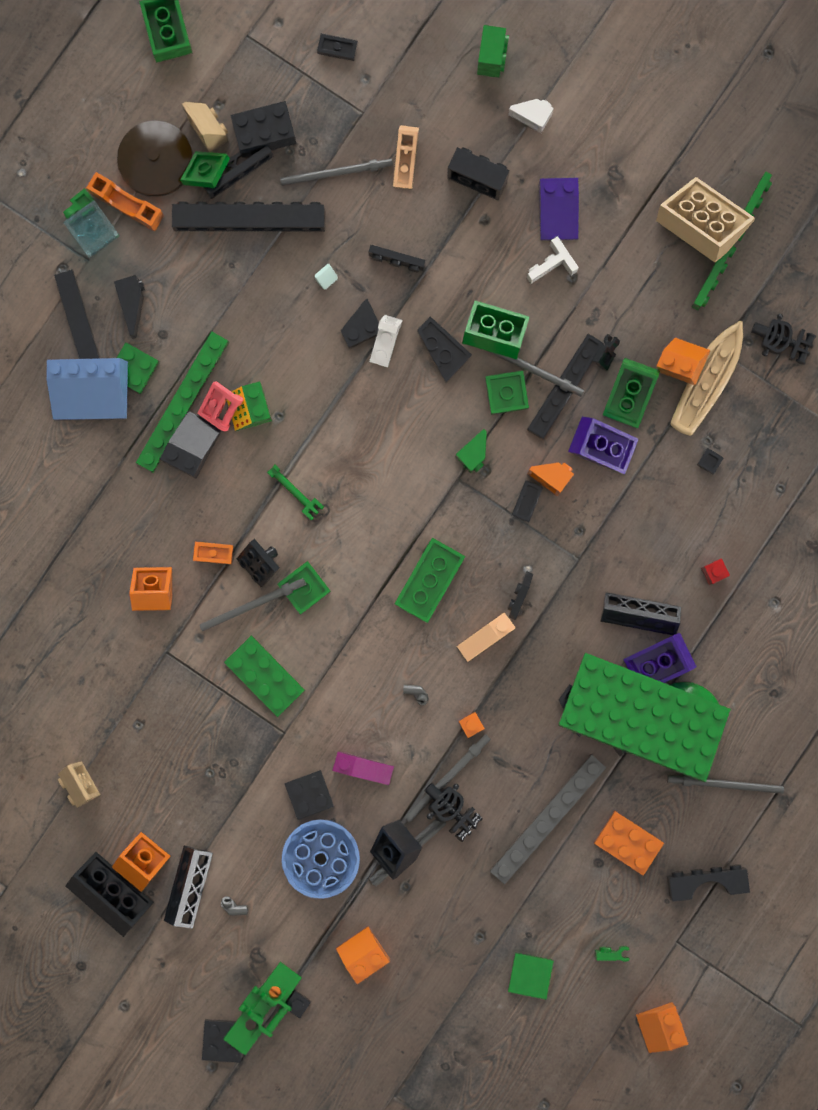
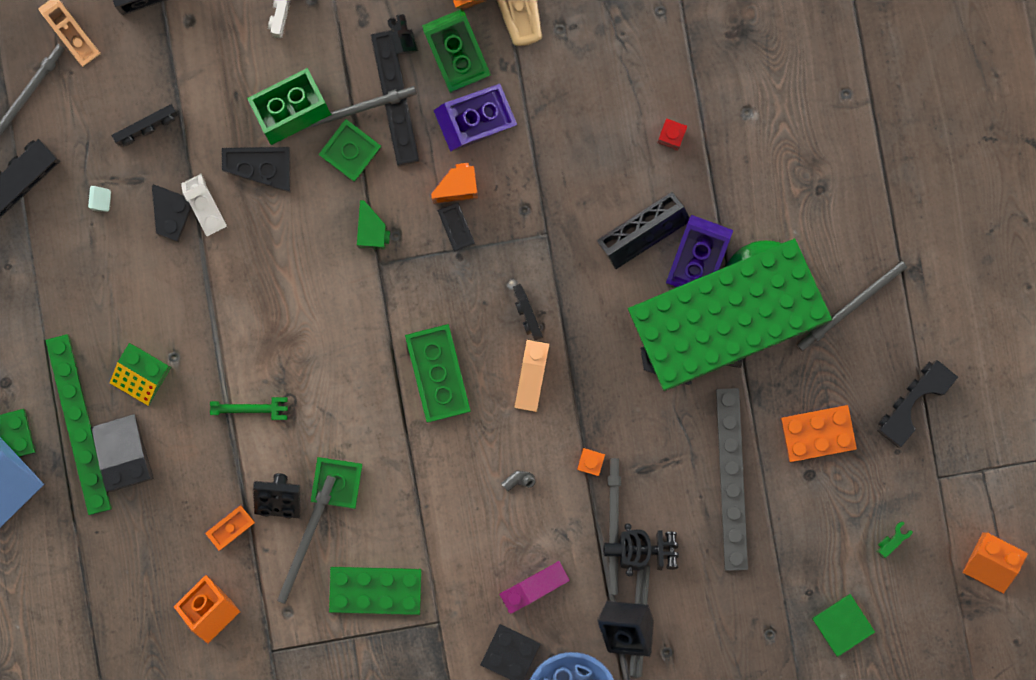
camera: 45 degrees left, 0 degrees up
(214, 404) = (108, 399): coral plate -> none
(710, 461) = (578, 44): black plate -> none

